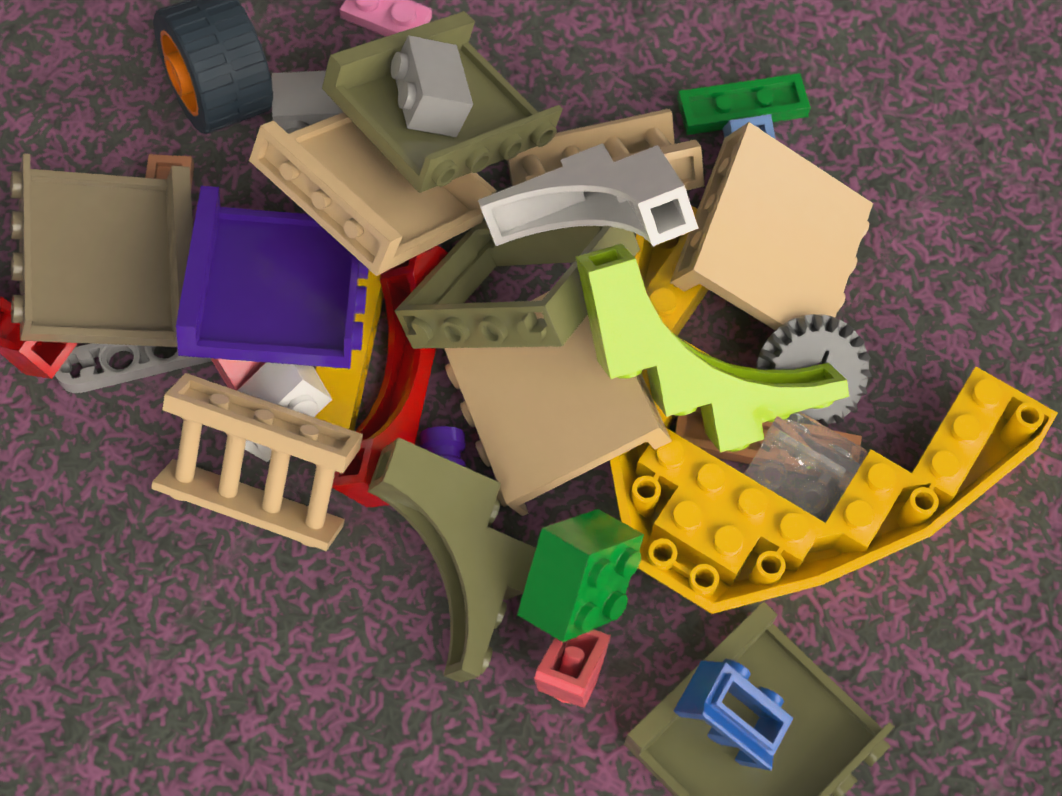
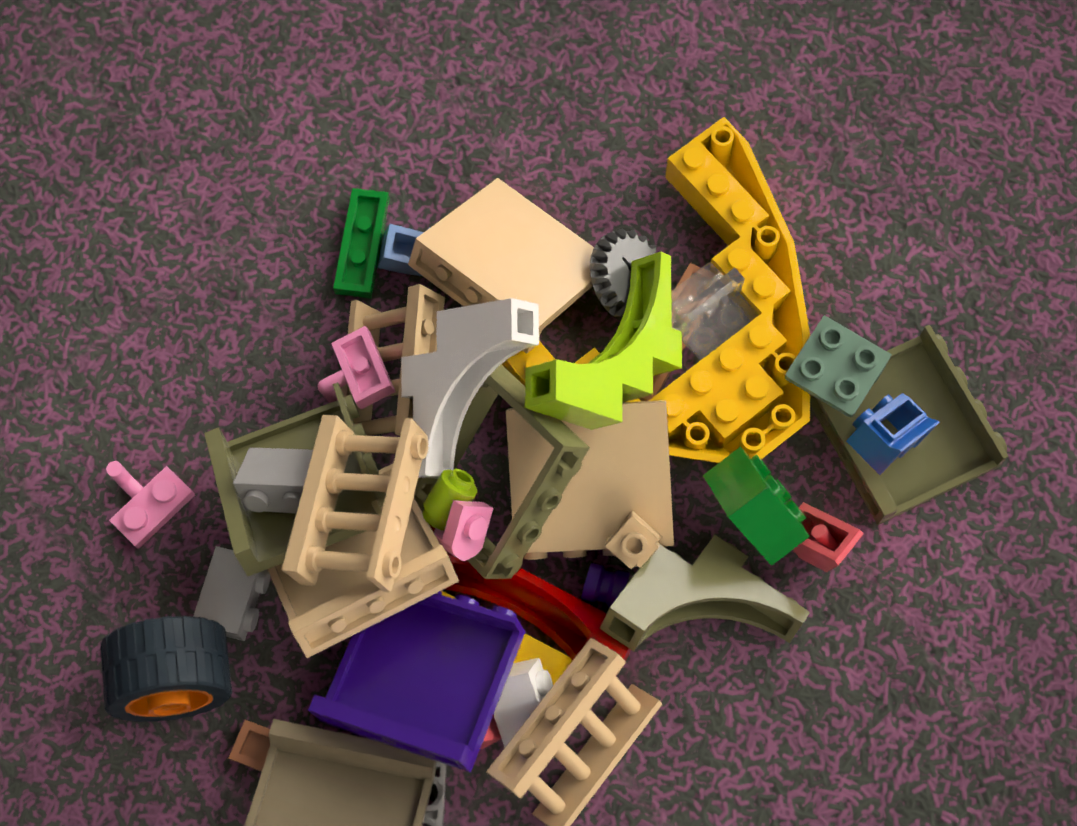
camera: 65 degrees left, 5 degrees up
(412, 112) = (320, 493): none -> tan fence
(439, 269) = (465, 529): none -> bright pink plate
(468, 246) = (450, 486): none -> lime brick
(490, 450) = (634, 542): none -> tan window
(599, 124) = (360, 368): none -> bright pink plate
(790, 625) = (837, 366): none -> sand green bracket

